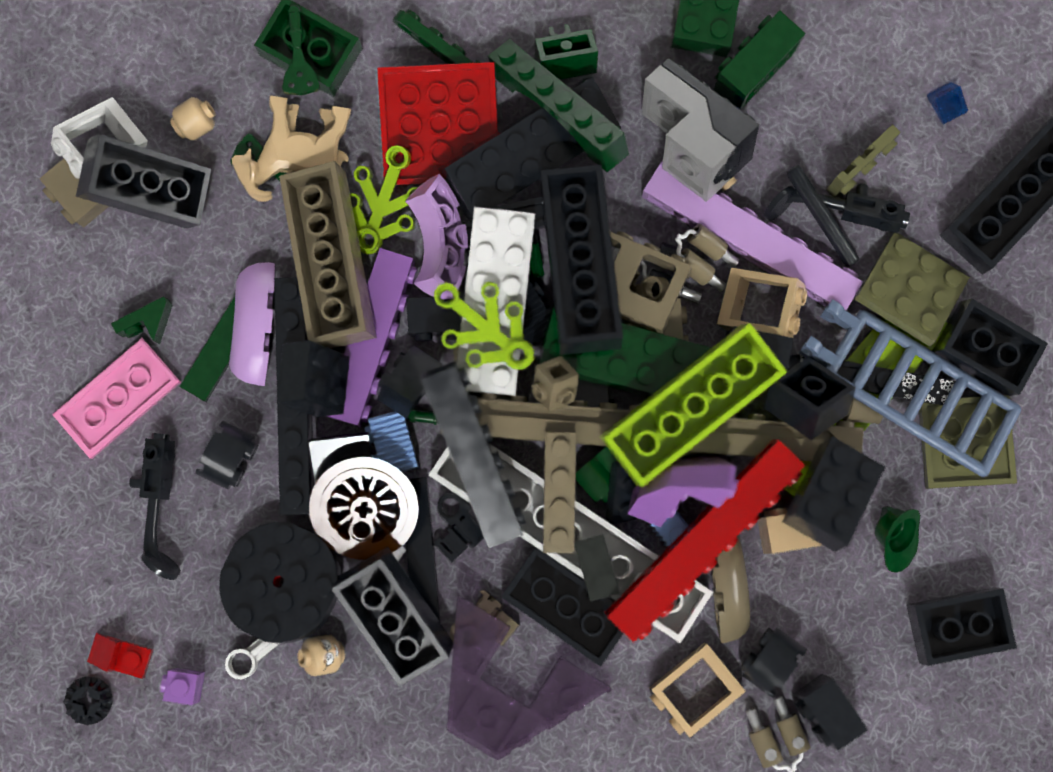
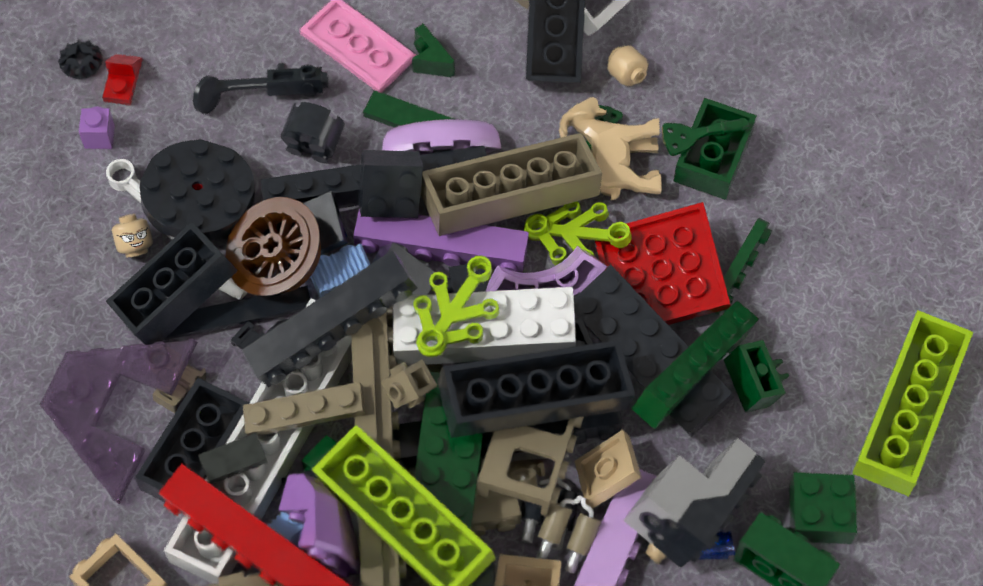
camera: 80 degrees right, 20 degrees down
(647, 208) = (607, 469): none -> tan plate

